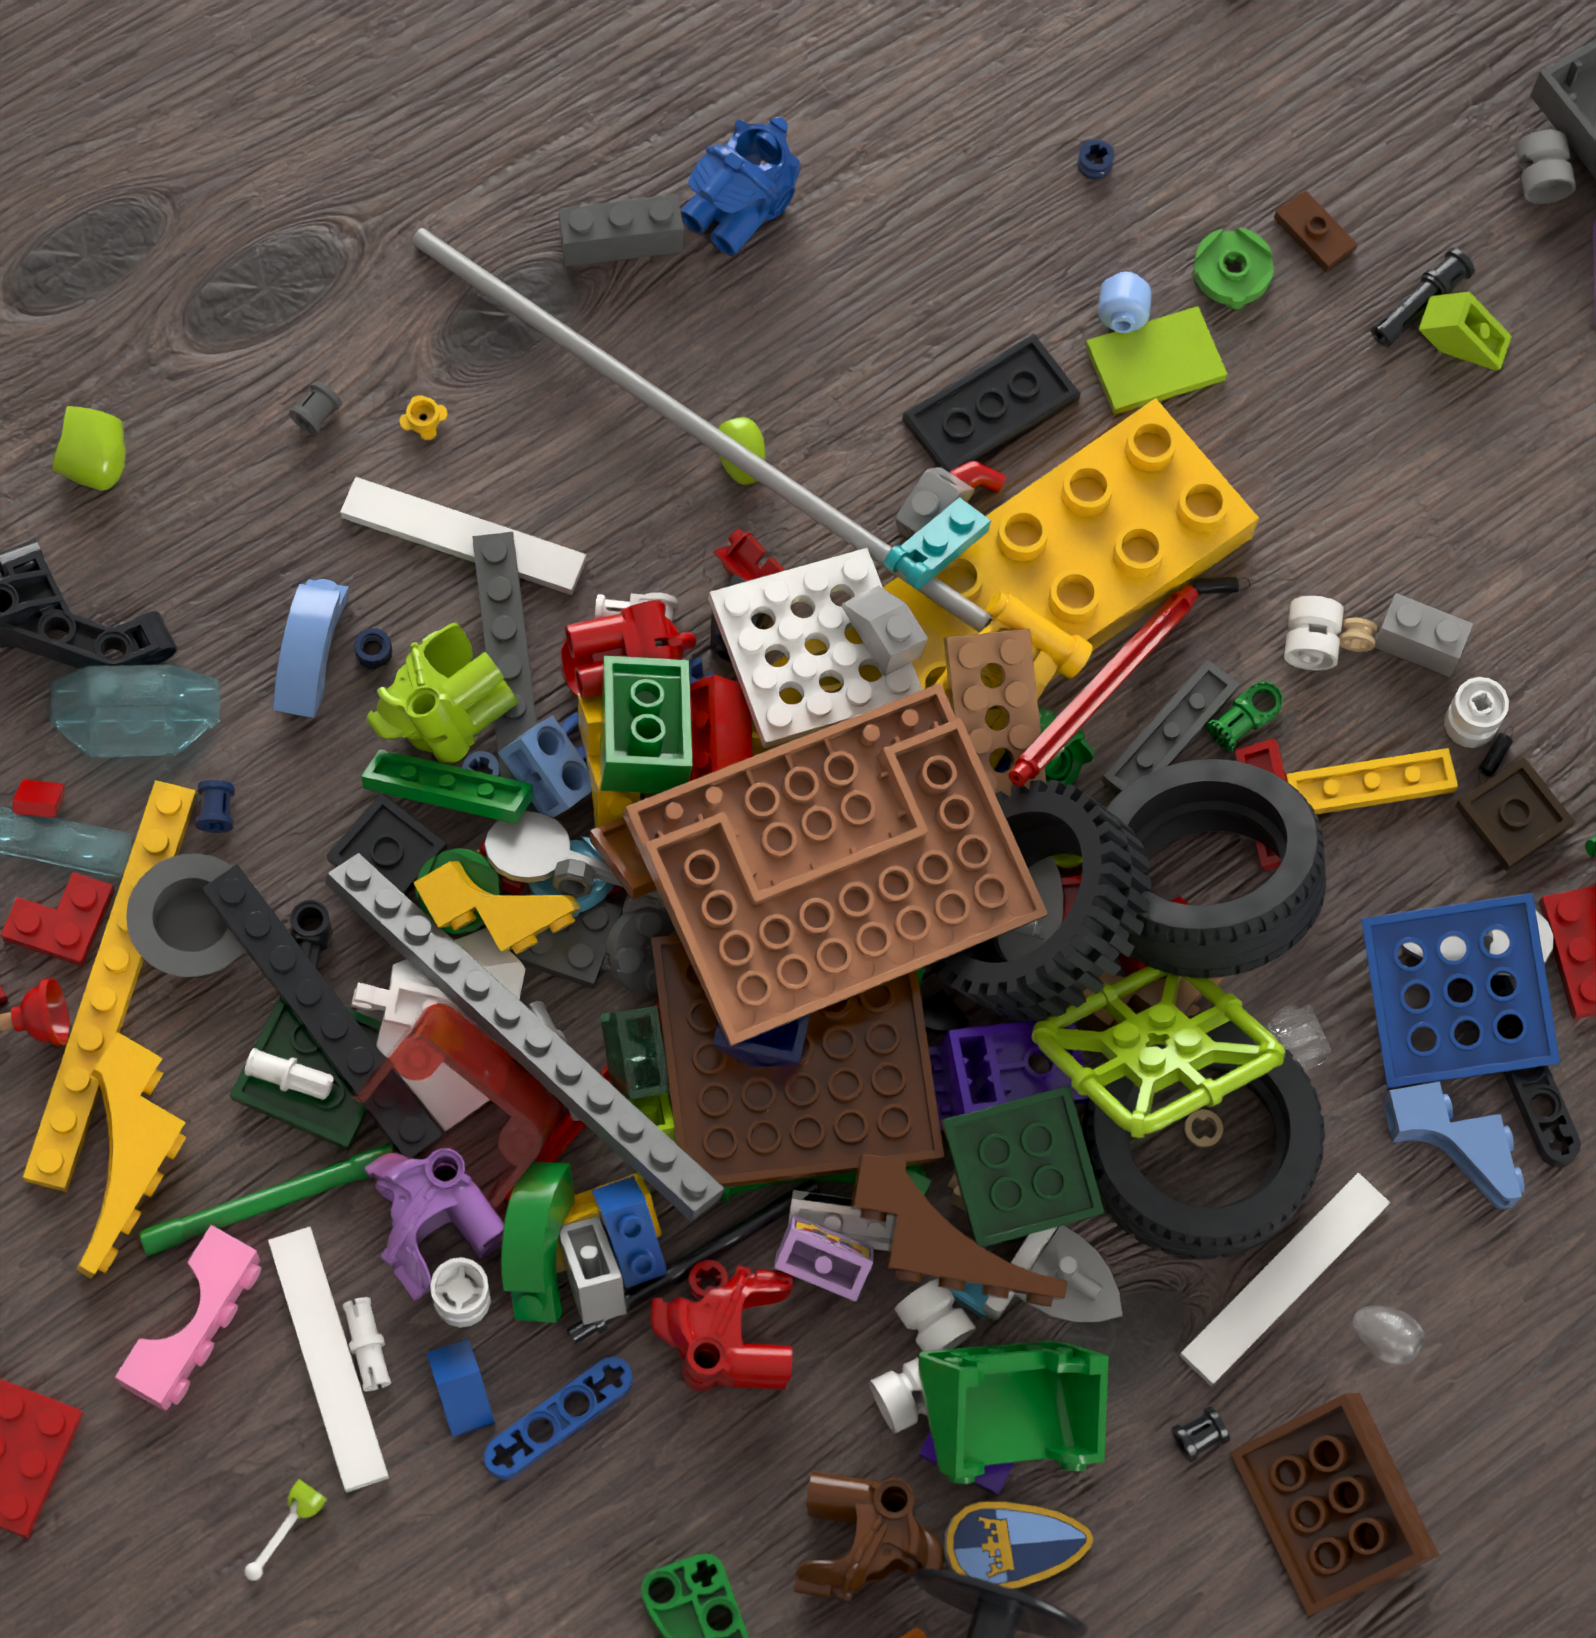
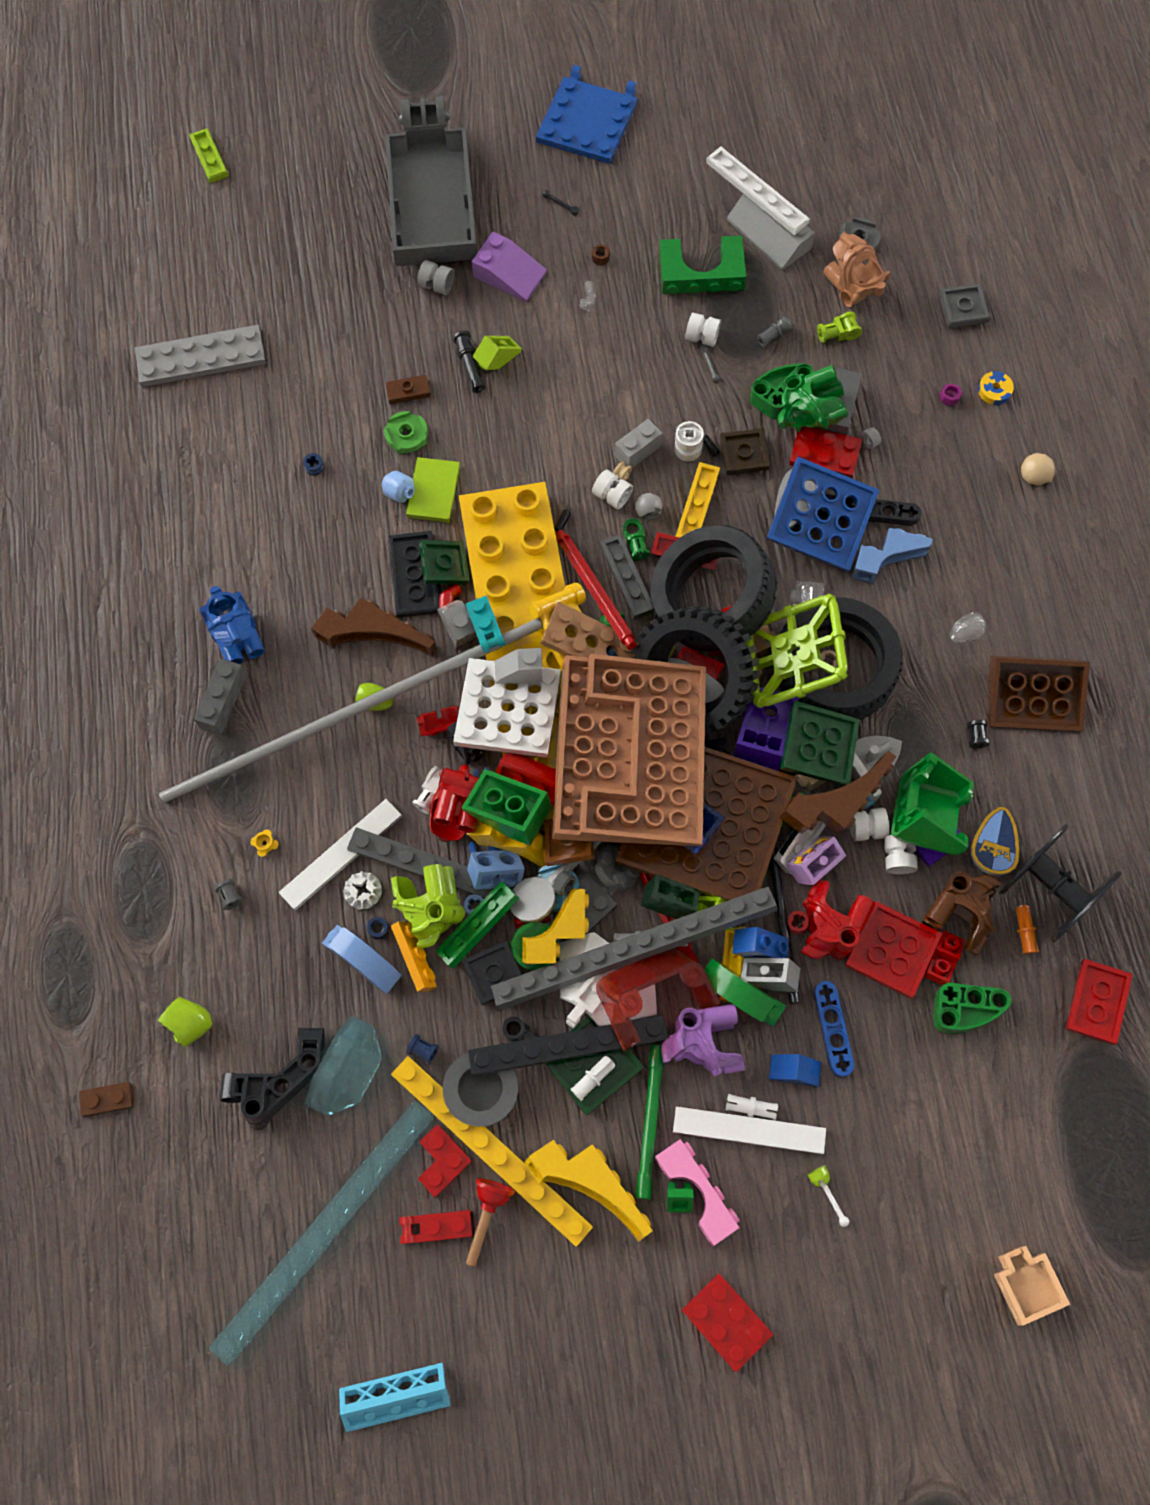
camera: 55 degrees left, 0 degrees up
(38, 798) = (368, 1141): red tile -> none
(166, 1298) = (680, 1199): none -> green tile
(346, 725) = (414, 957): none -> light orange plate
(436, 606) = (365, 900): none -> white gear
(460, 1292) = (750, 1044): white wheel -> none
(740, 1455) = (894, 950): none -> red plate
(768, 1548) = (945, 958): none -> red slope
(863, 380) = (370, 623): none -> reddish brown arch
(1030, 437) = (444, 562): none -> dark green plate
(1284, 1279) = (919, 662): white tile -> none
(1318, 706) = (648, 506): none -> light grey piece

